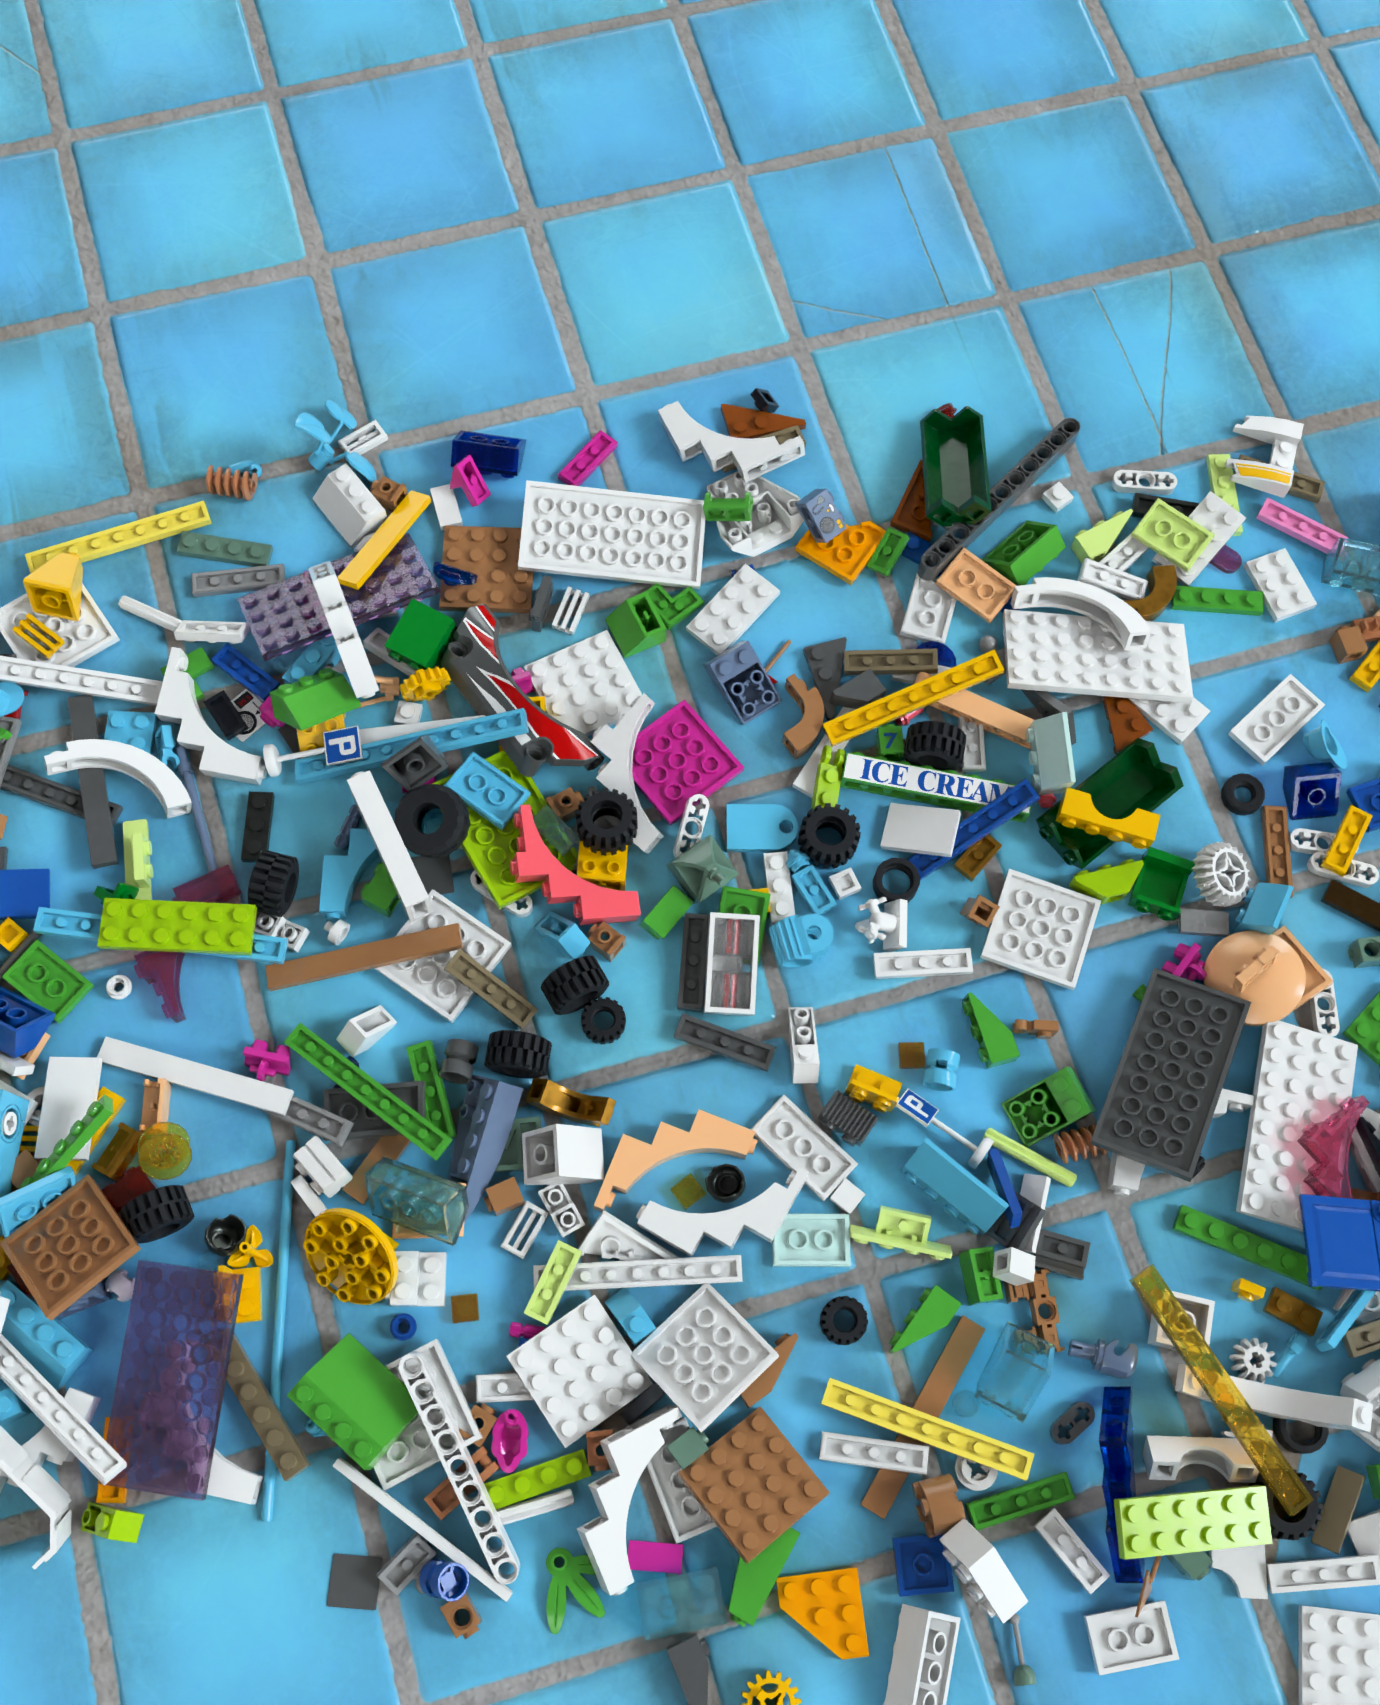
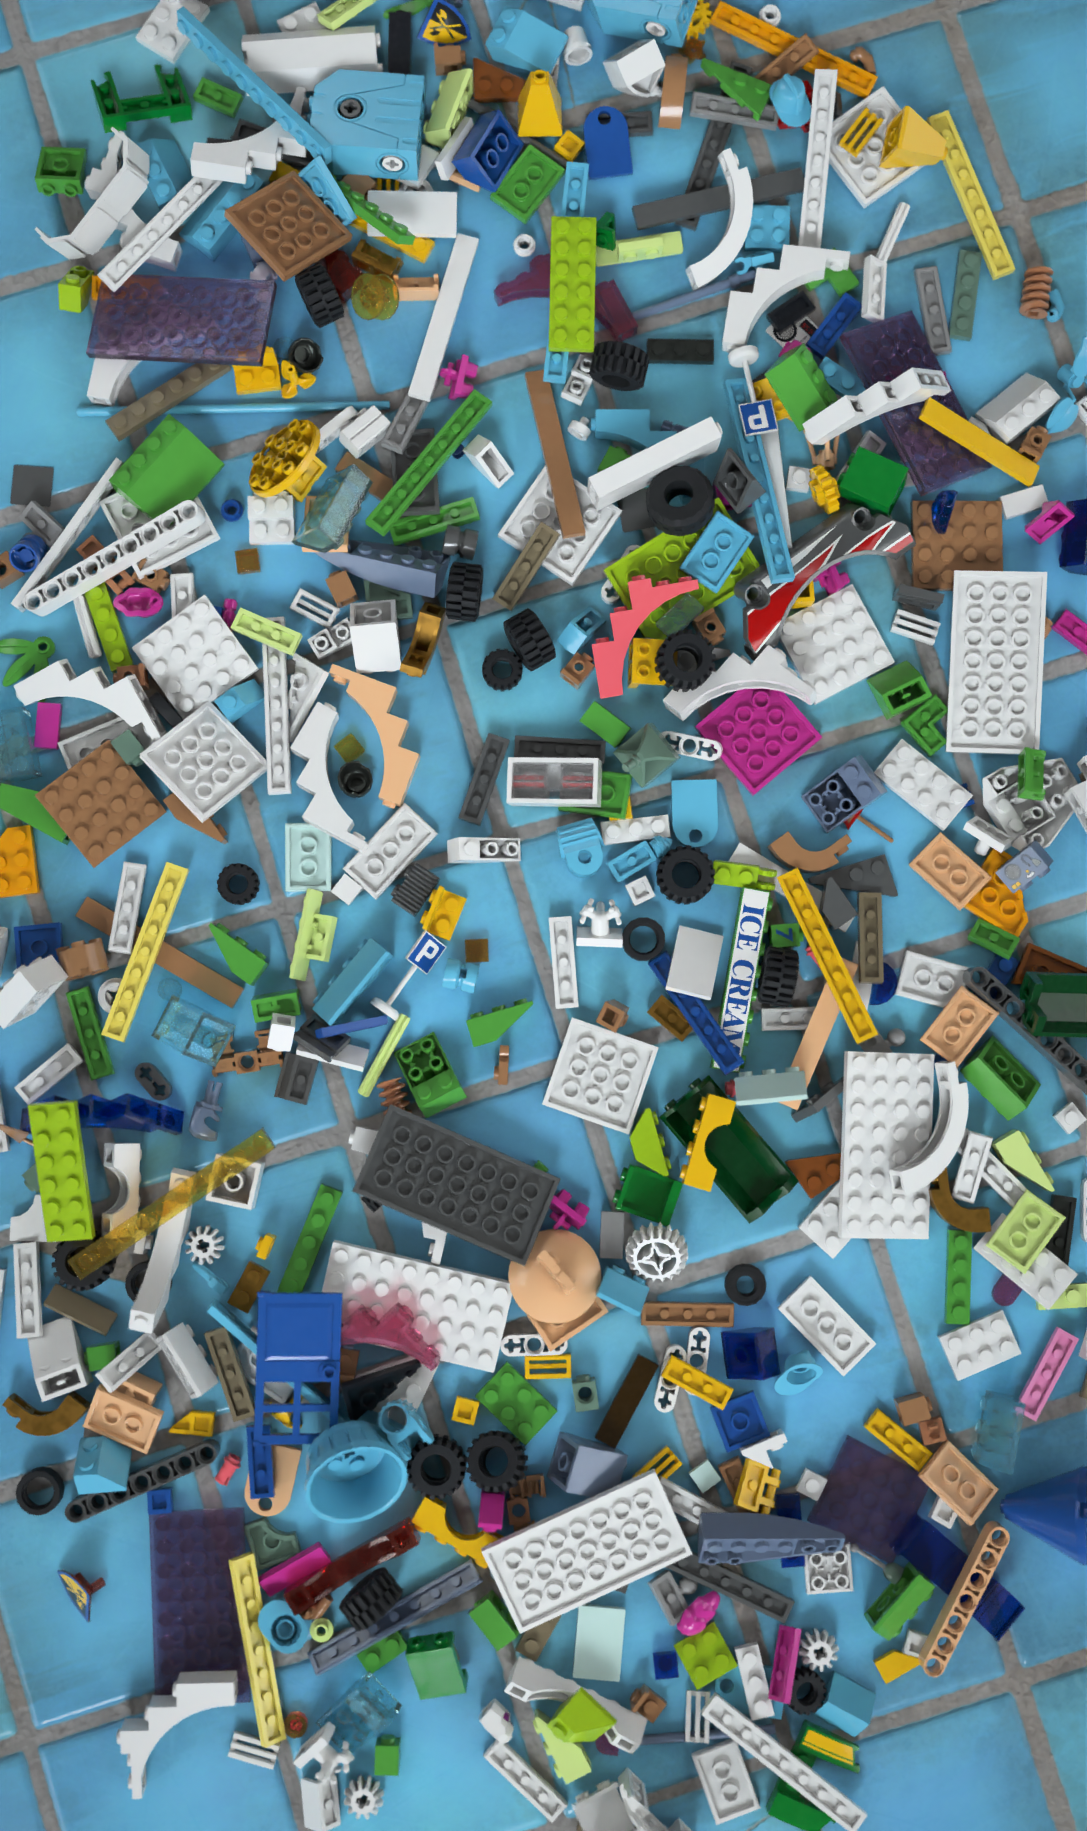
camera: 90 degrees right, 15 degrees up
(787, 551) = (988, 836): none -> white tile
(821, 588) = (950, 871): none -> light nougat tile
(1345, 1010) = (564, 1356): none -> yellow tile

